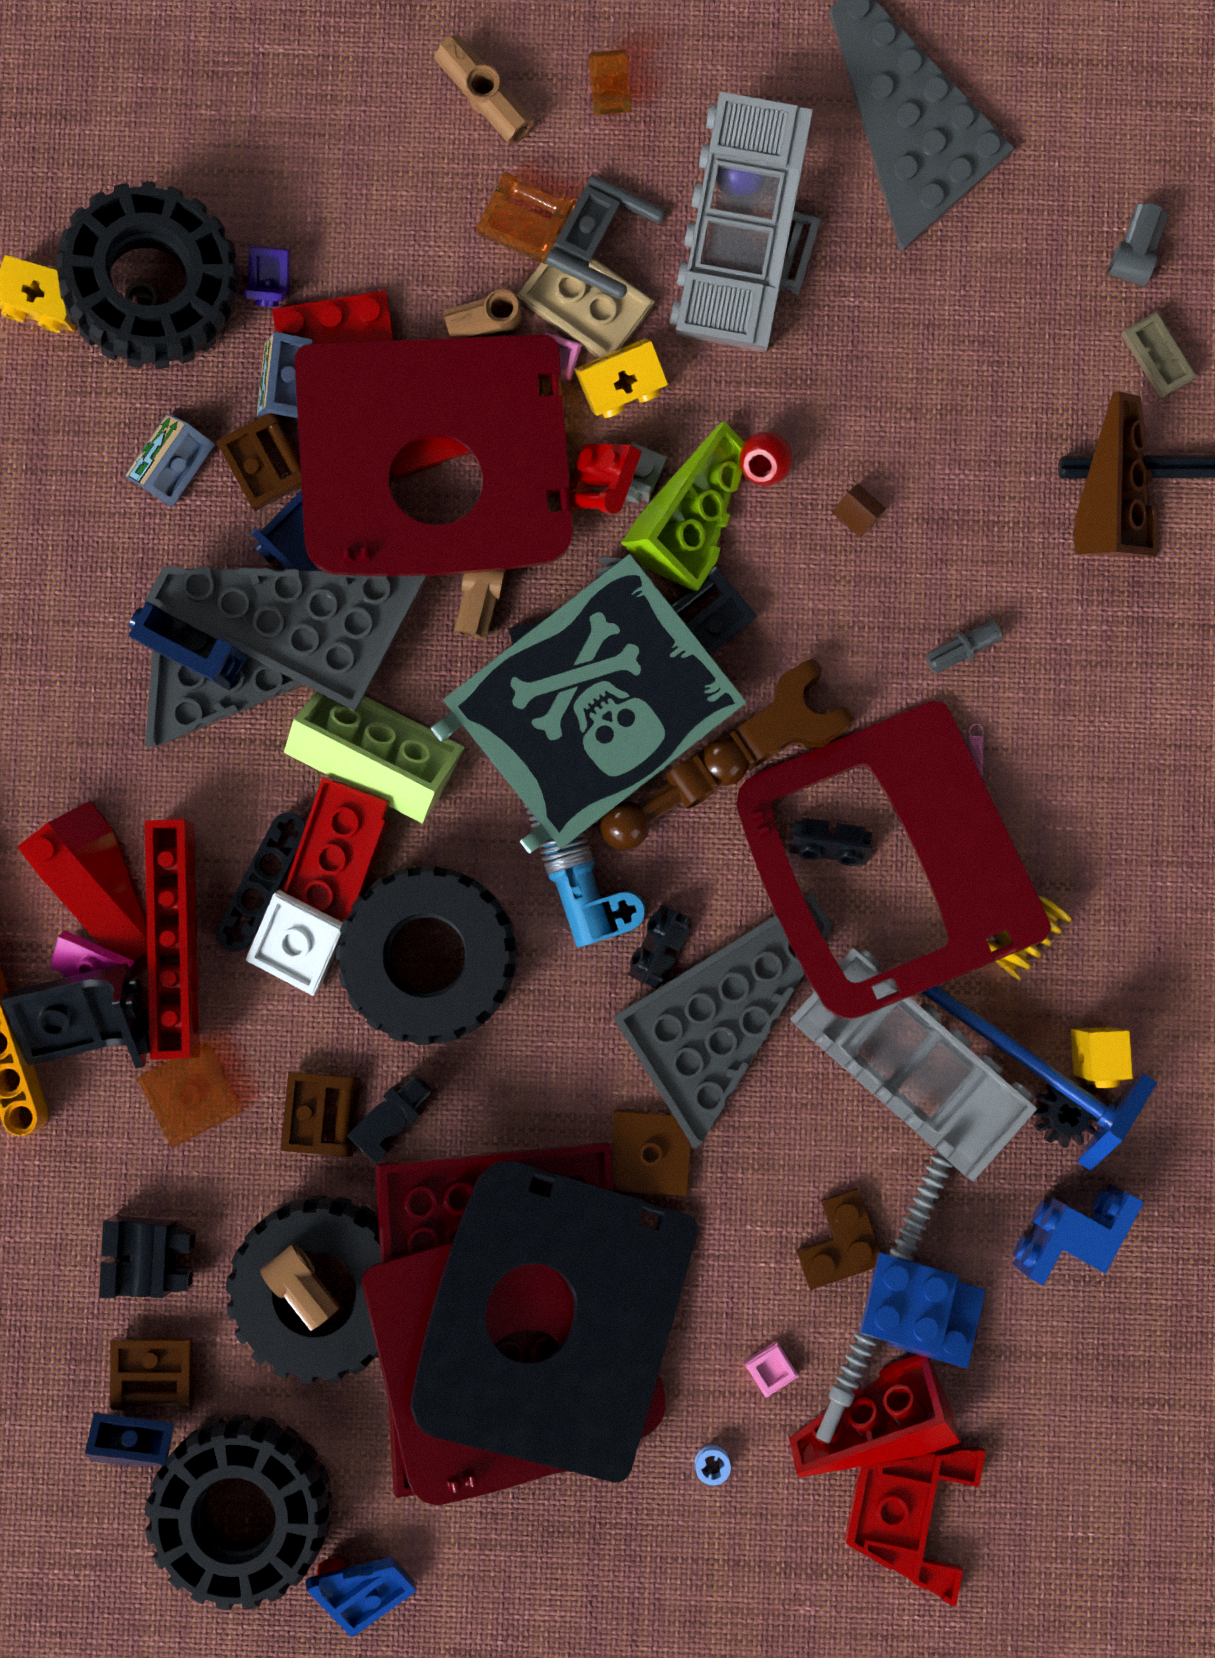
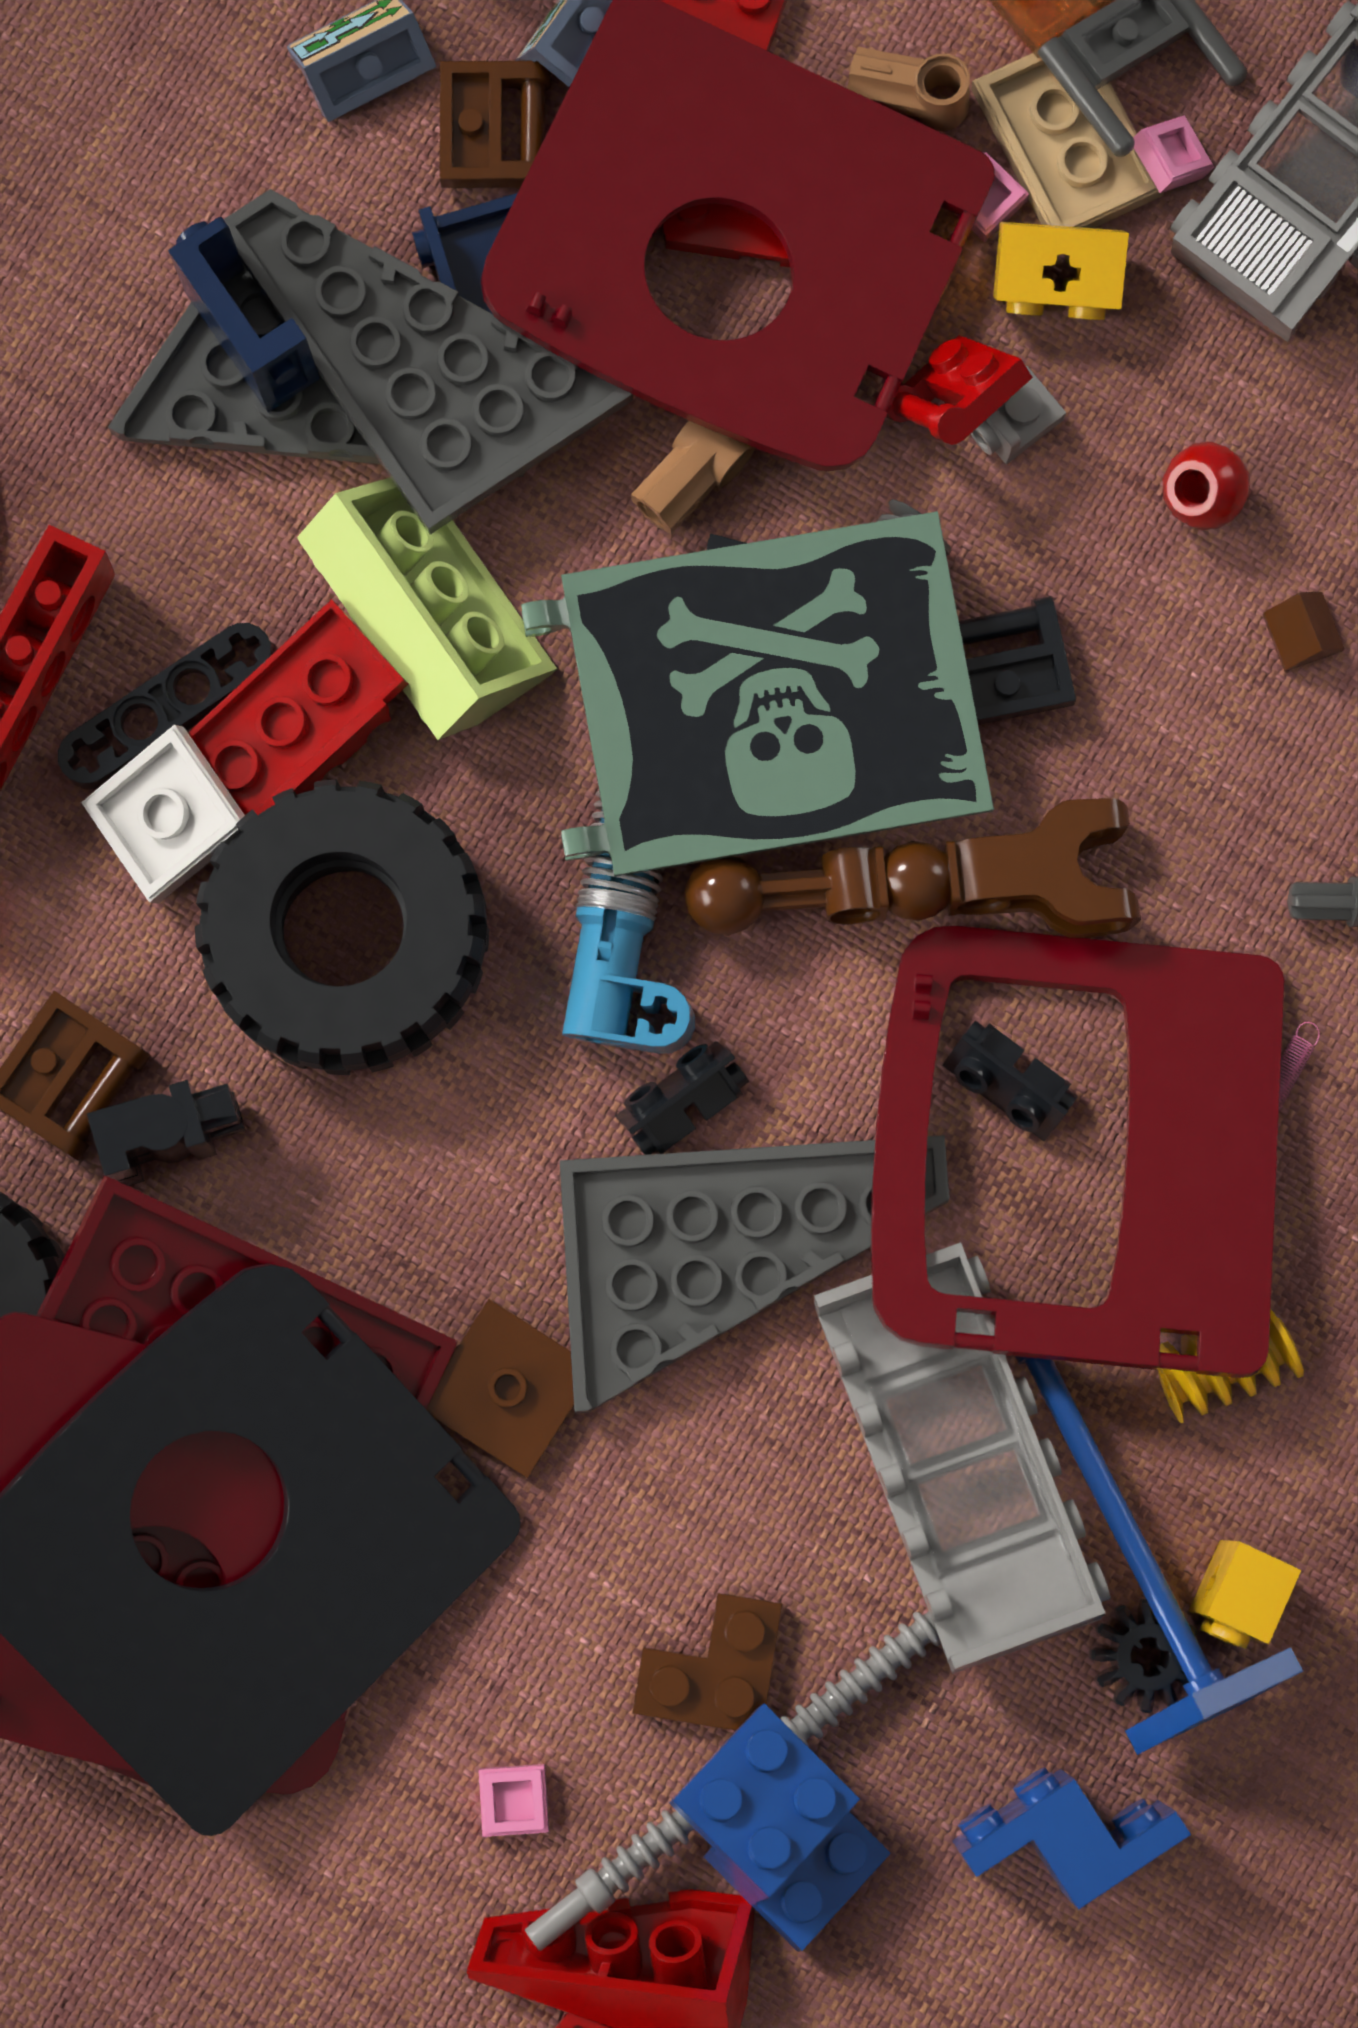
camera: 25 degrees right, 5 degrees down
(648, 280) = (1172, 154): none -> bright pink tile
(685, 519) = (1045, 513): lime wedge -> none
(724, 1467) = (365, 1908): light blue bush -> none

